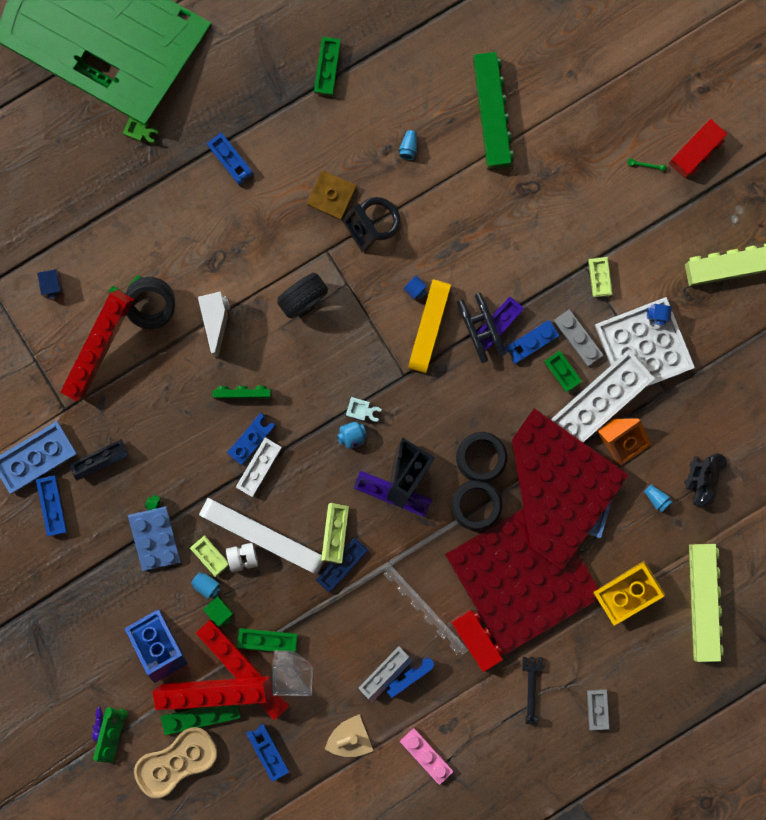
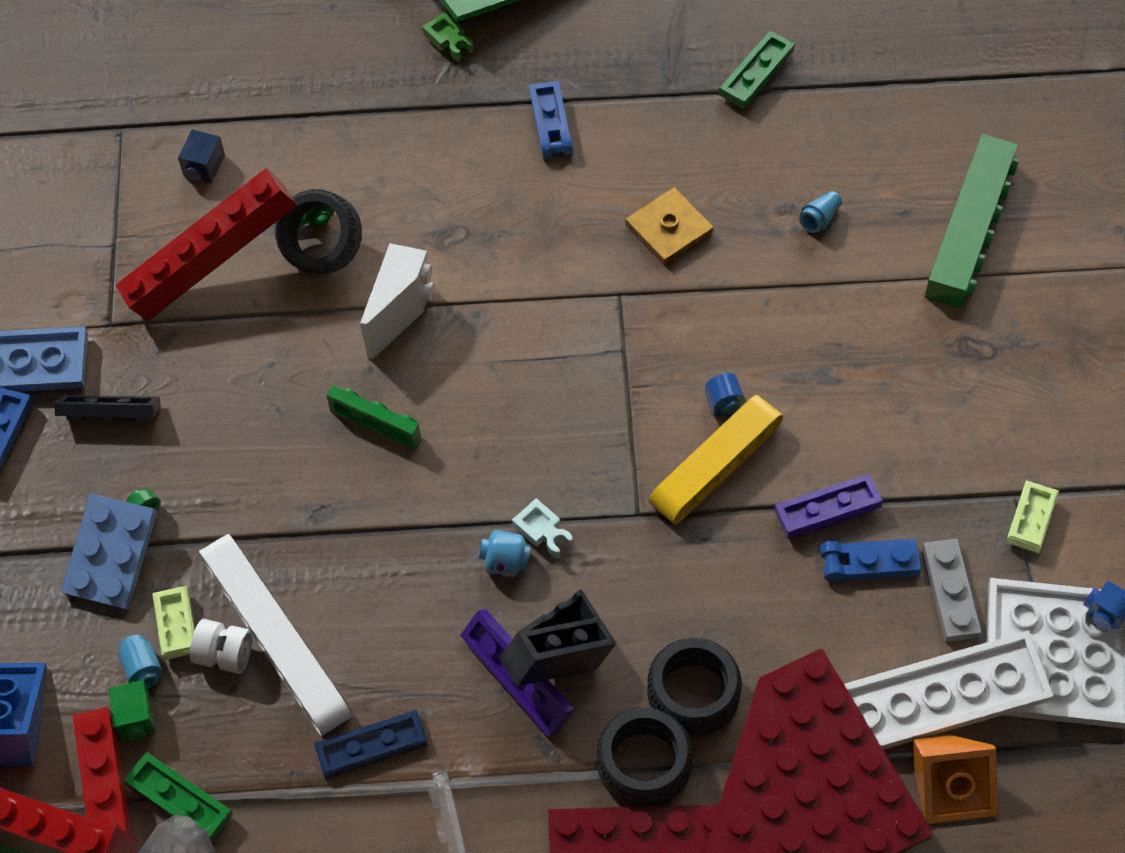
camera: 35 degrees right, 25 degrees down
(250, 439) = (349, 487): blue plate -> none
(258, 467) = (333, 531): white plate -> none
(302, 295) = (545, 319): black tyre -> none
(335, 533) = (388, 684): yellowish green plate -> none
(362, 227) = (689, 276): black tile -> none
(491, 332) = (811, 507): black piece -> none
(562, 371) = (899, 625): green plate -> none

